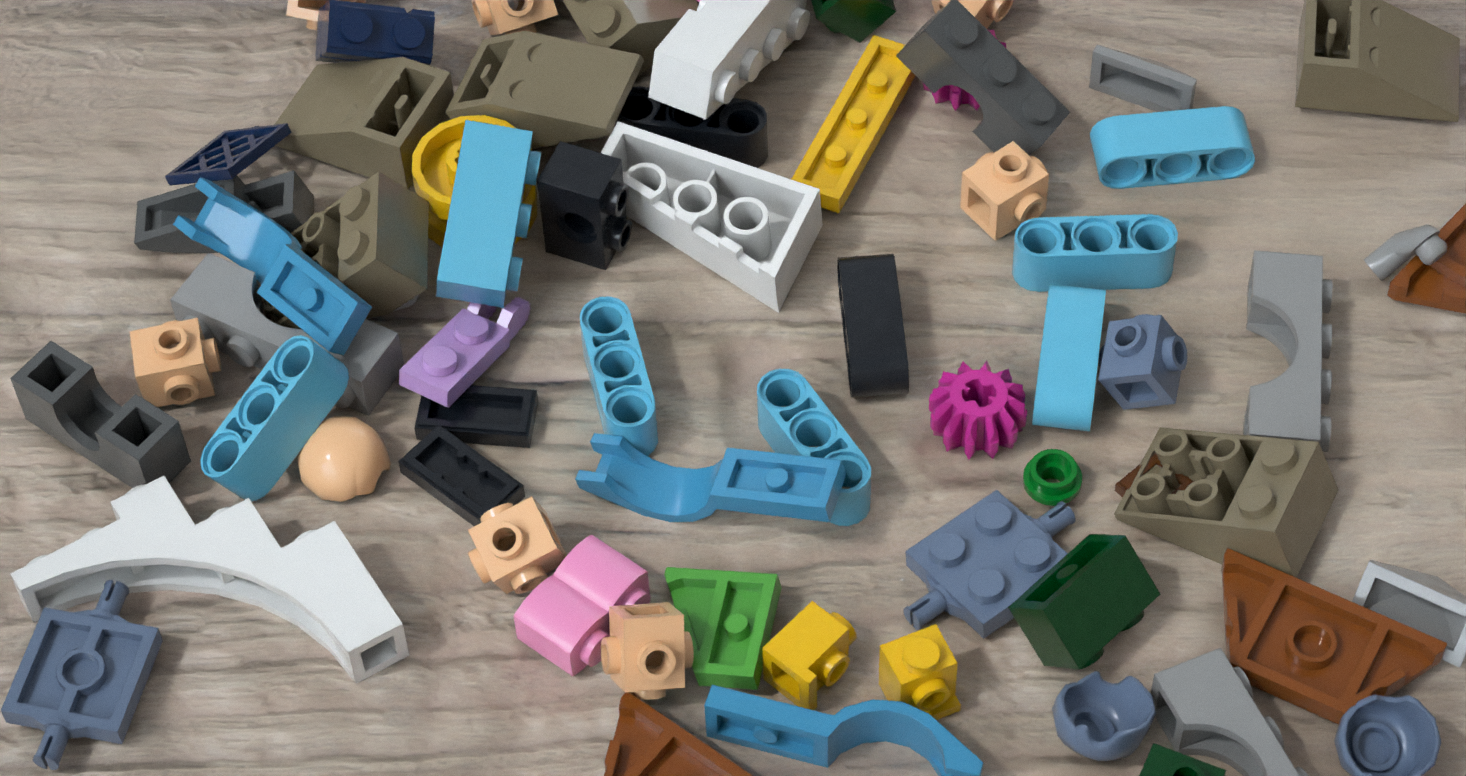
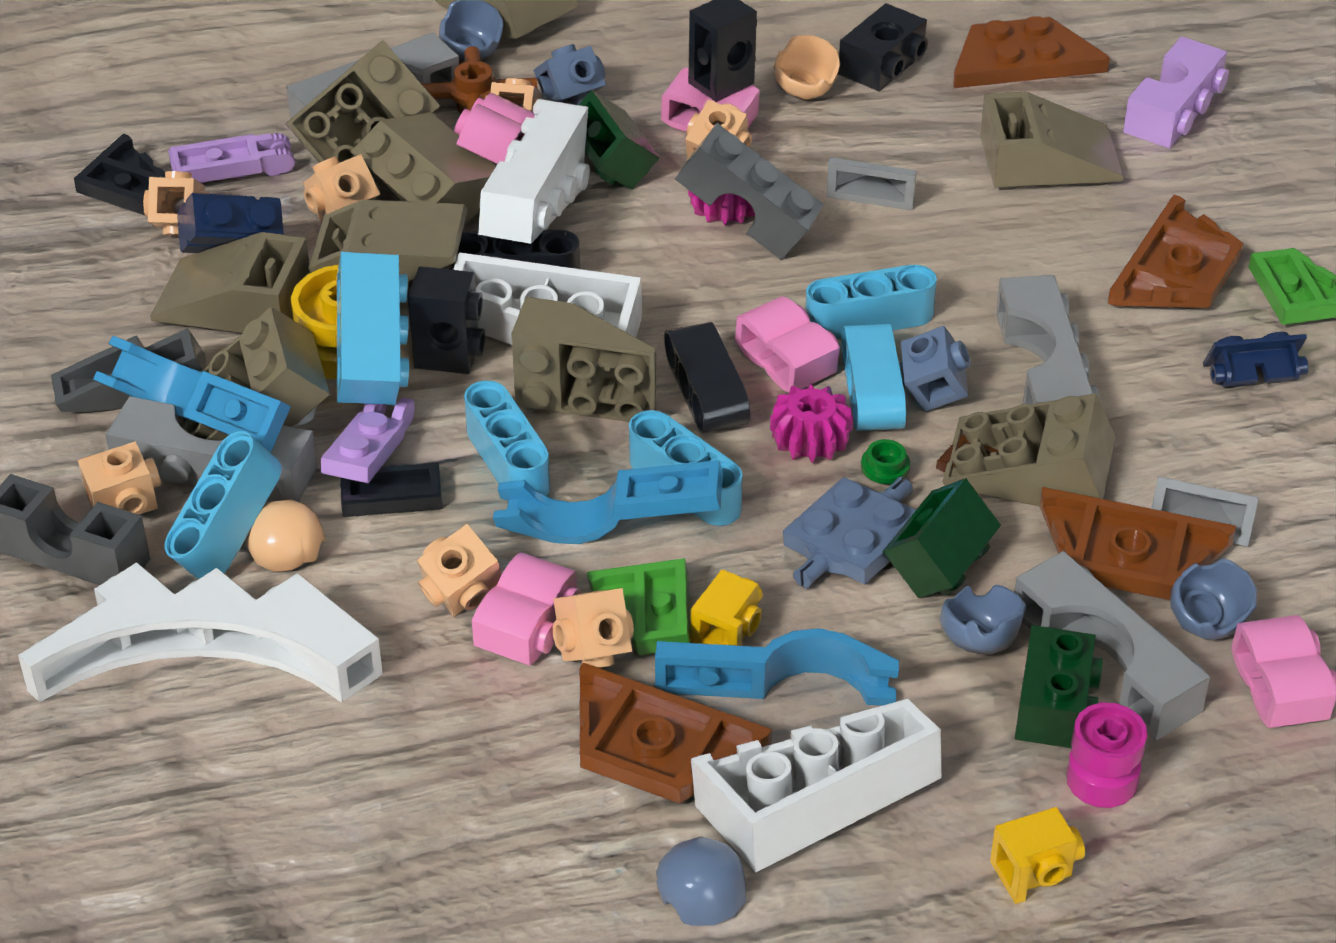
camera: 15 degrees left, 10 degrees down
(82, 675) = (98, 729): sand blue plate -> none
(257, 142) = (124, 326): dark blue window -> none
(459, 476) = (388, 533): black plate -> none
(720, 291) = (579, 363): none -> dark tan slope
(855, 123) = (652, 234): yellow plate -> none
(920, 672) = (823, 603): yellow brick -> none
(980, 295) = (787, 343): none -> bright pink brick
(1004, 190) = (785, 266): light nougat brick -> none
(1172, 147) = (908, 224): medium azure beam -> none
(1405, 244) = (1110, 265): light grey arm -> none

